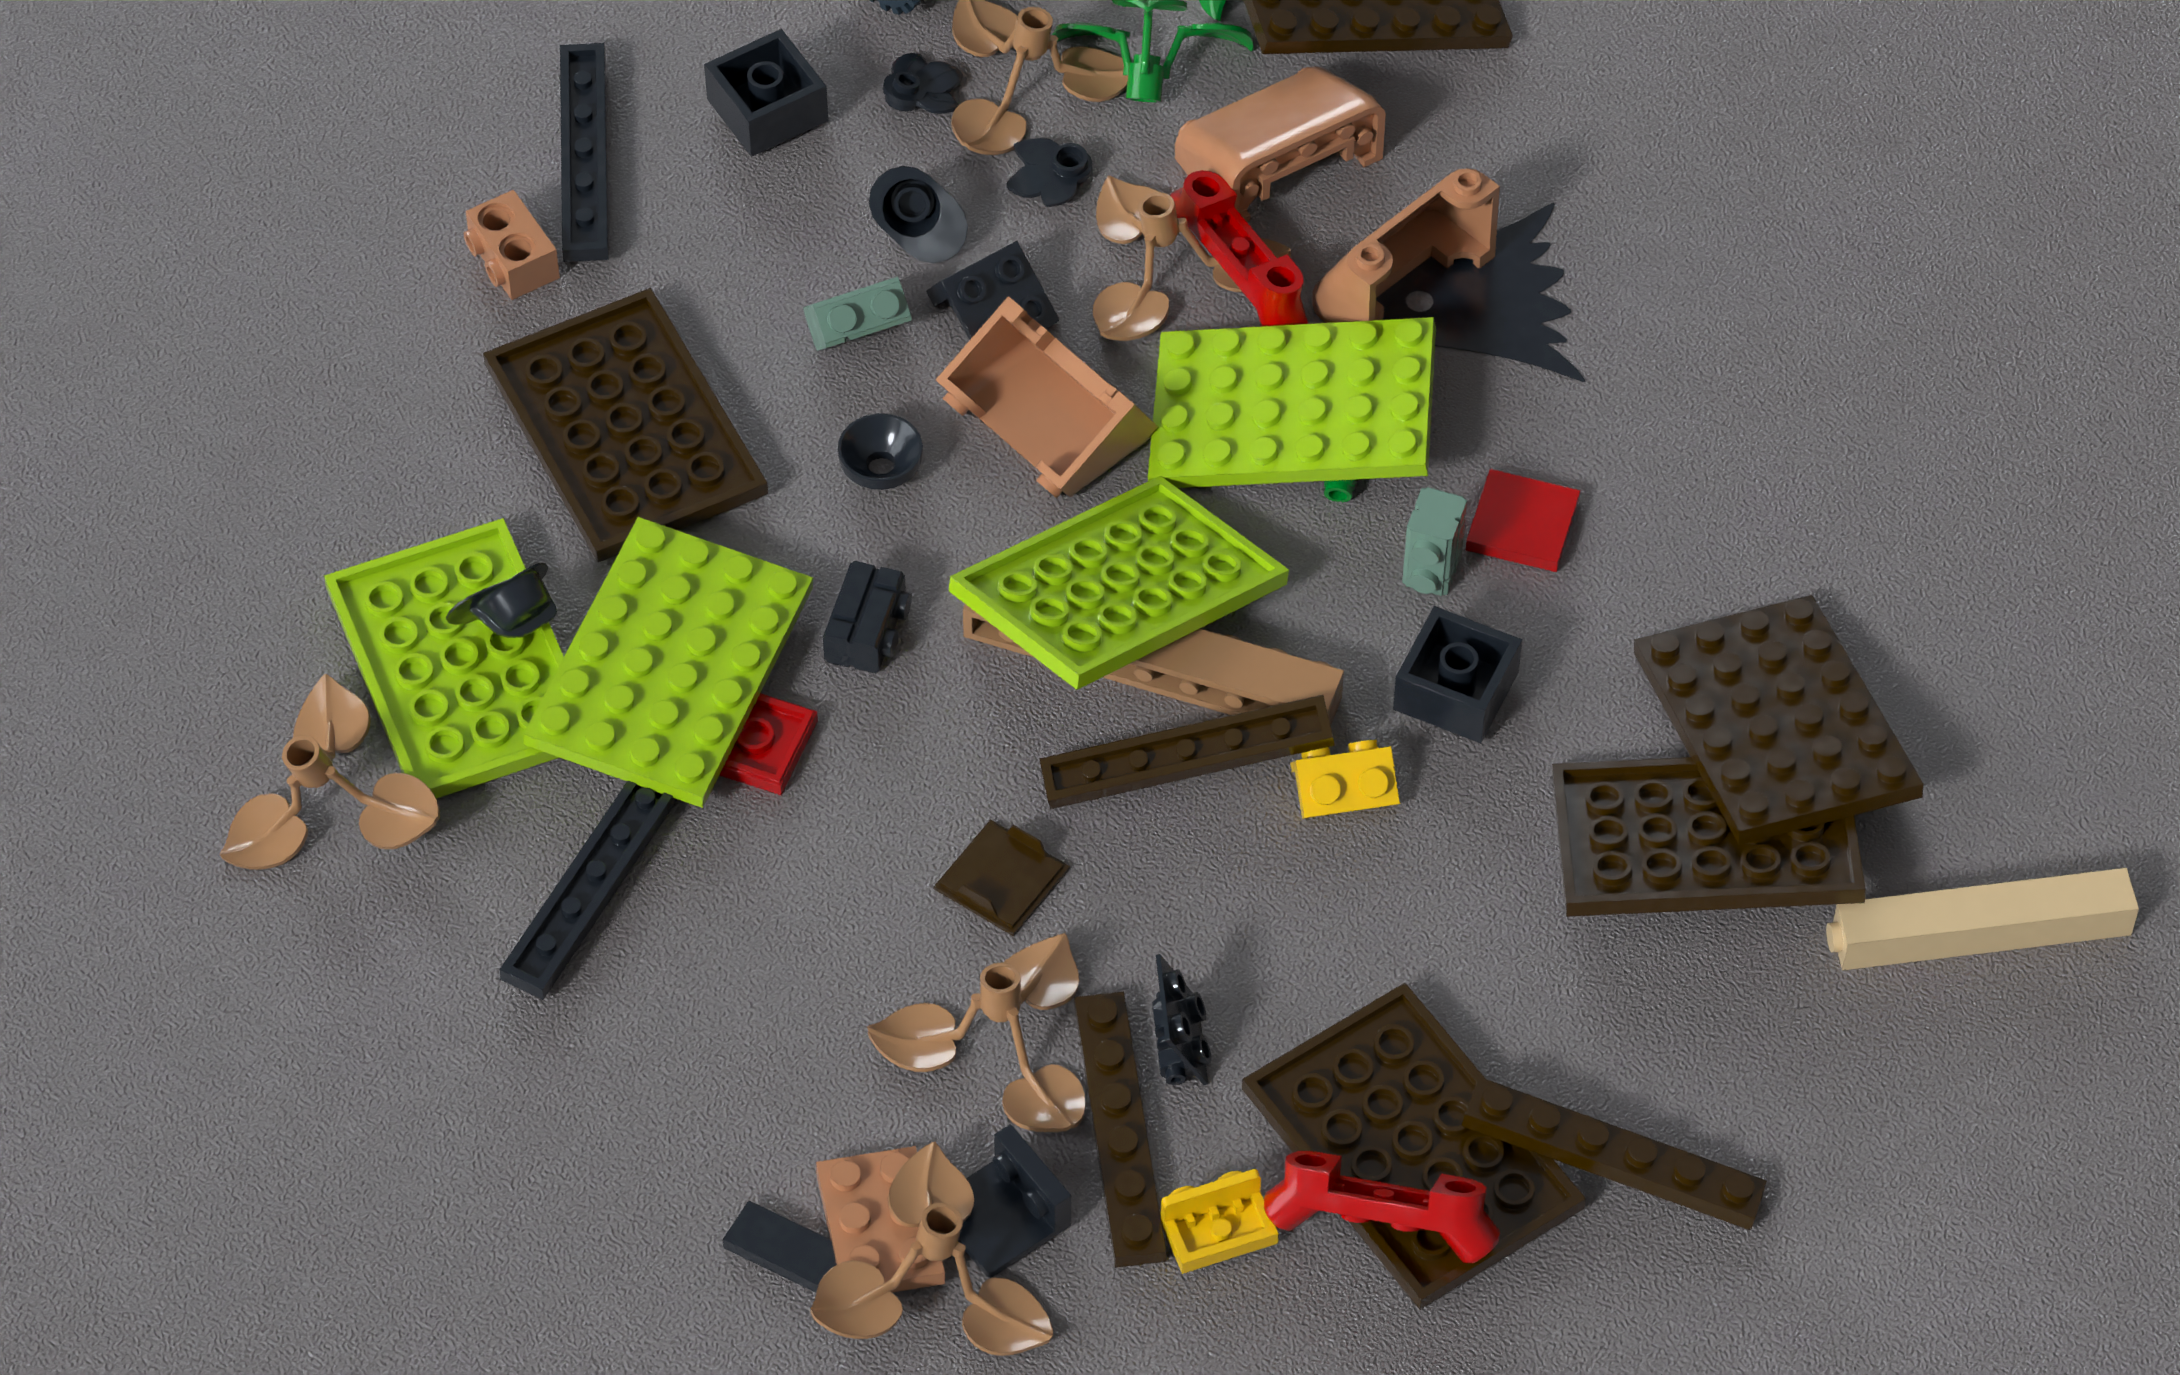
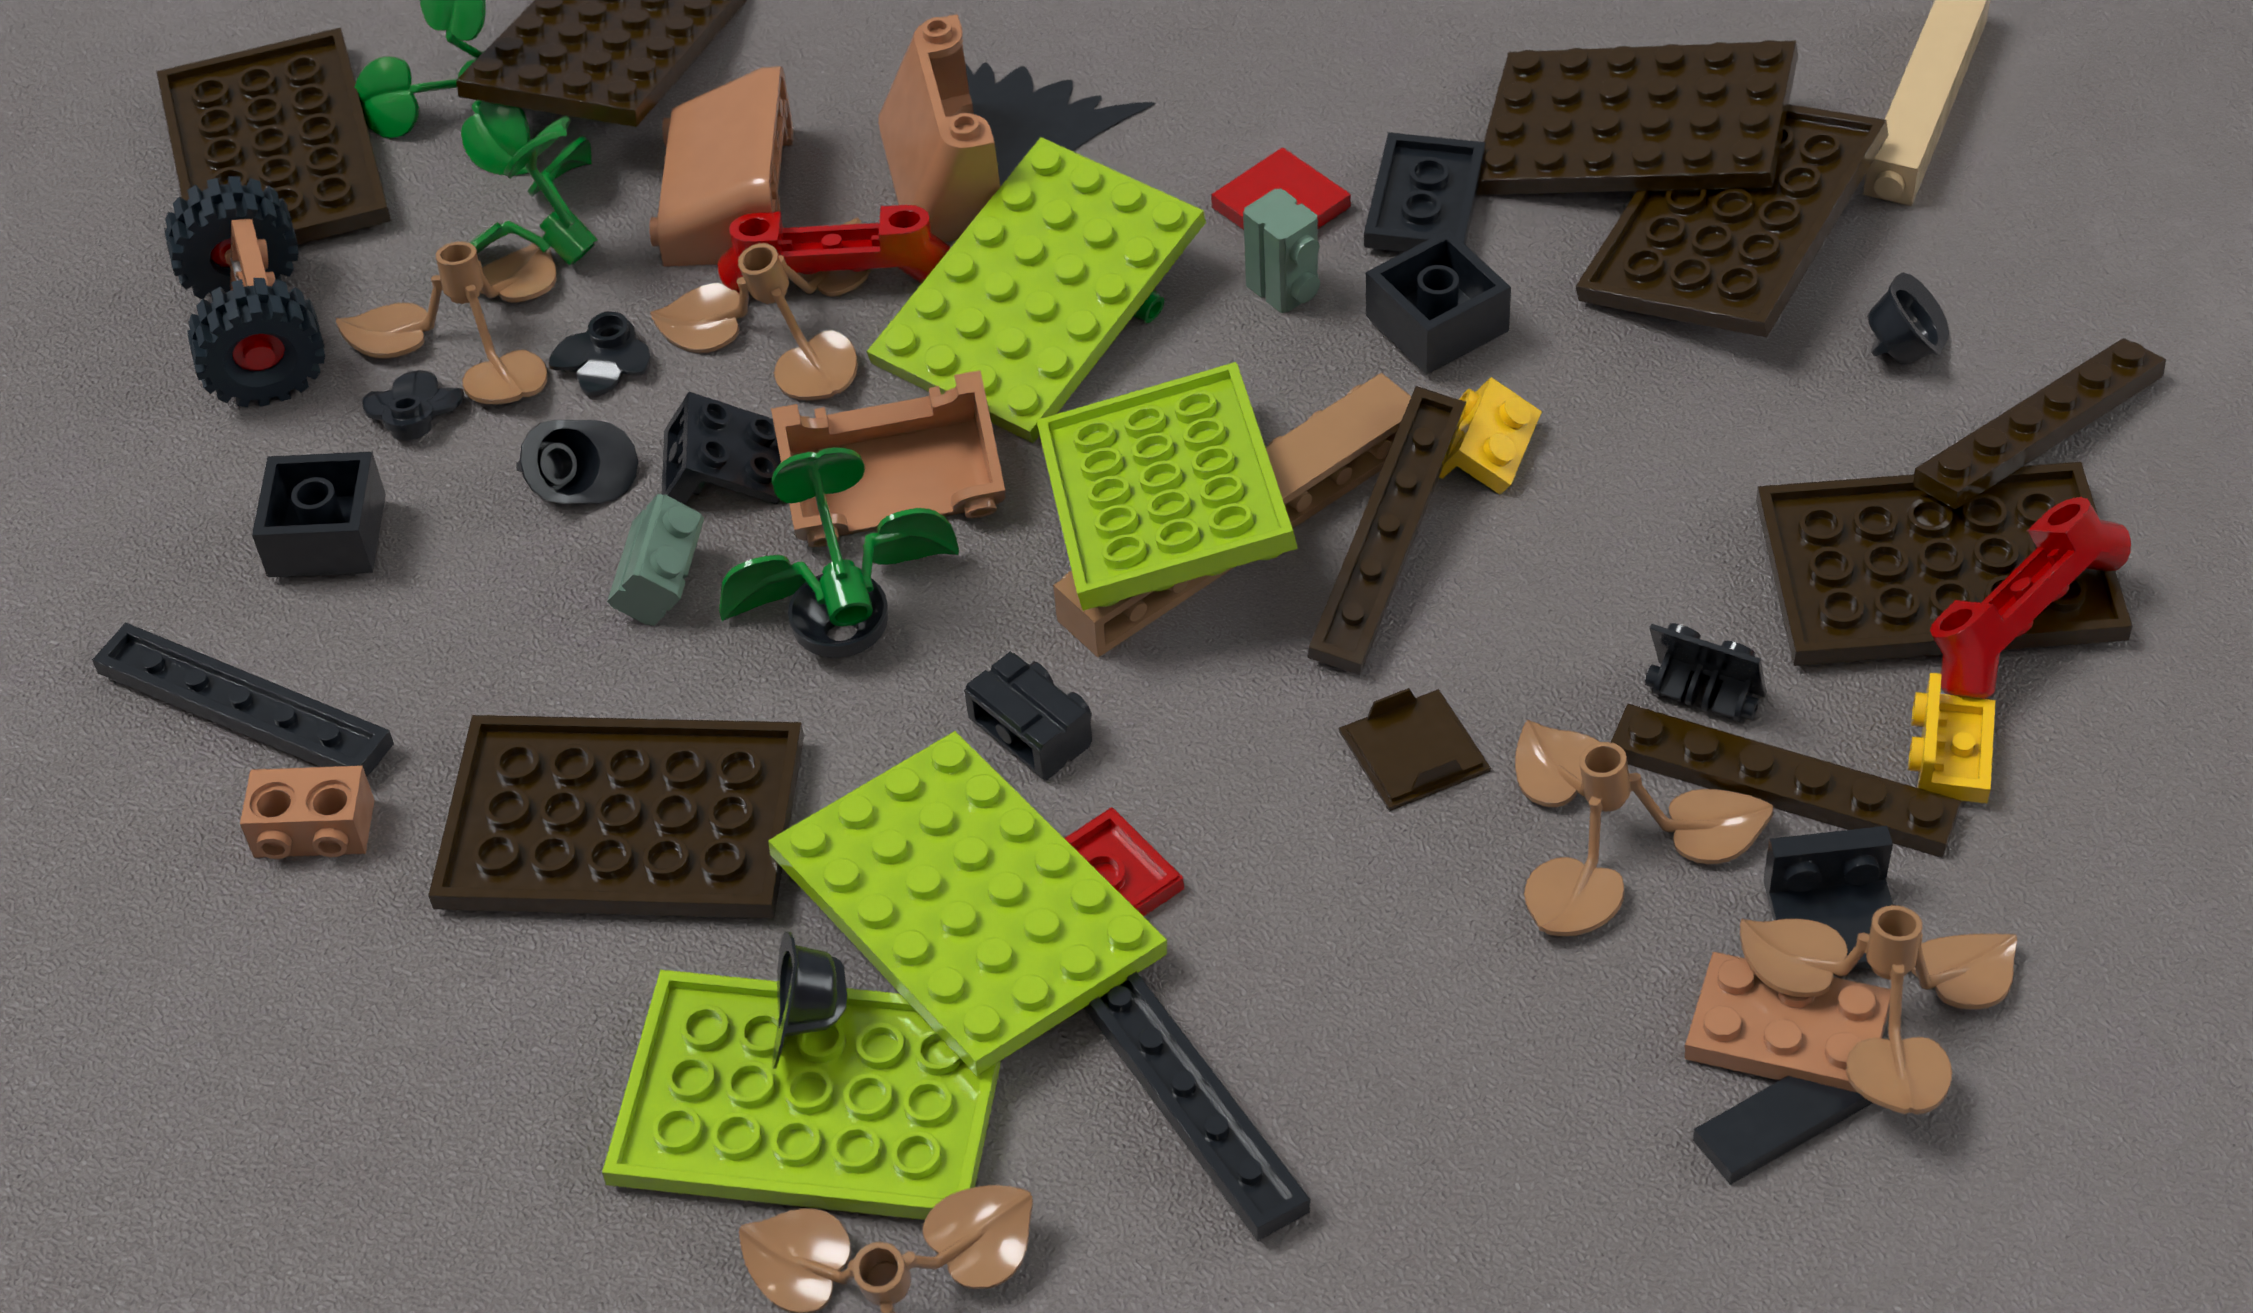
camera: 55 degrees left, 5 degrees down
(888, 432) = (843, 586): none -> green plant
(1591, 613) = (1423, 191): none -> black plate
(1676, 1015) = (1908, 321): none -> black piece

